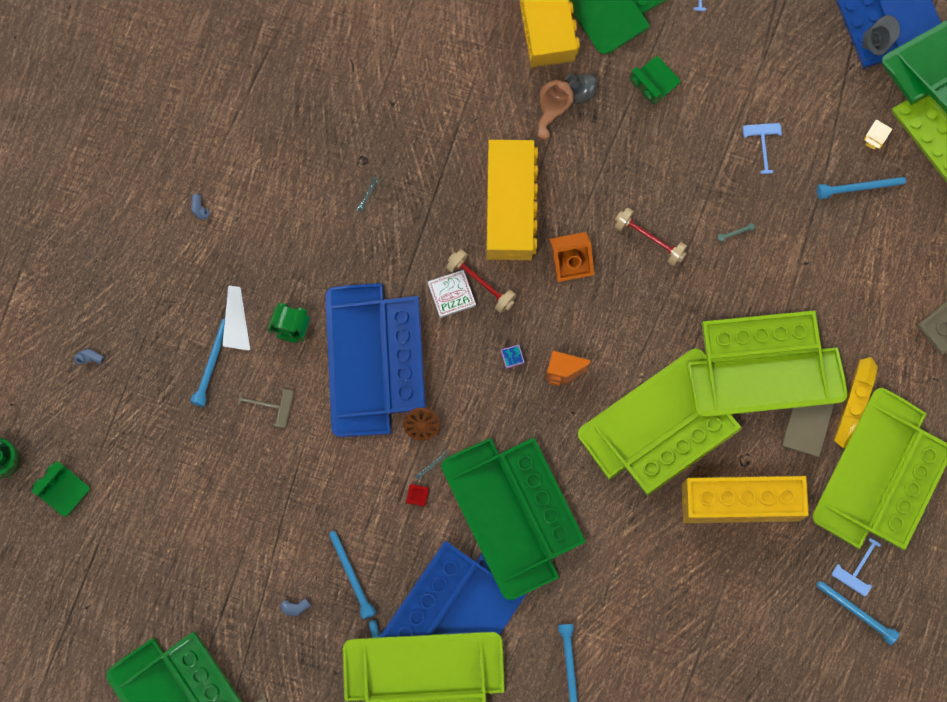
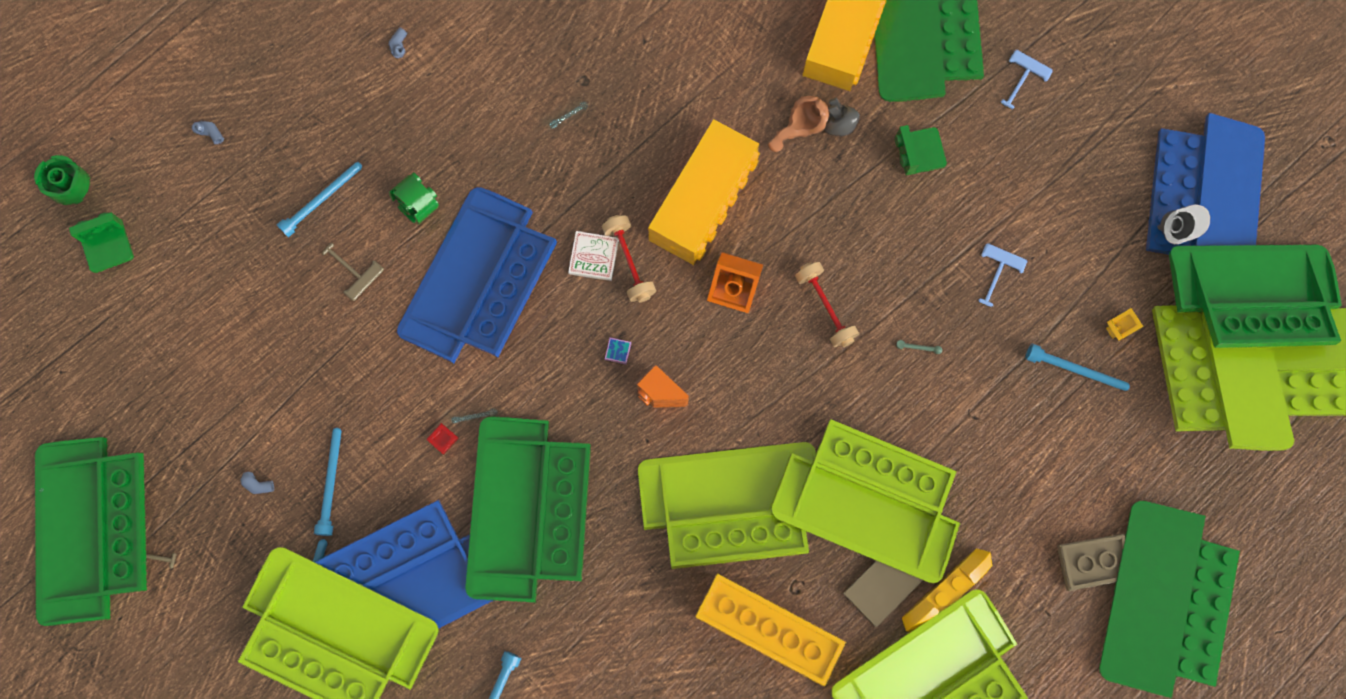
camera: 30 degrees right, 0 degrees up
(235, 323) = (365, 174): white sticker -> none
(421, 424) = (485, 368): dark orange wheel -> none

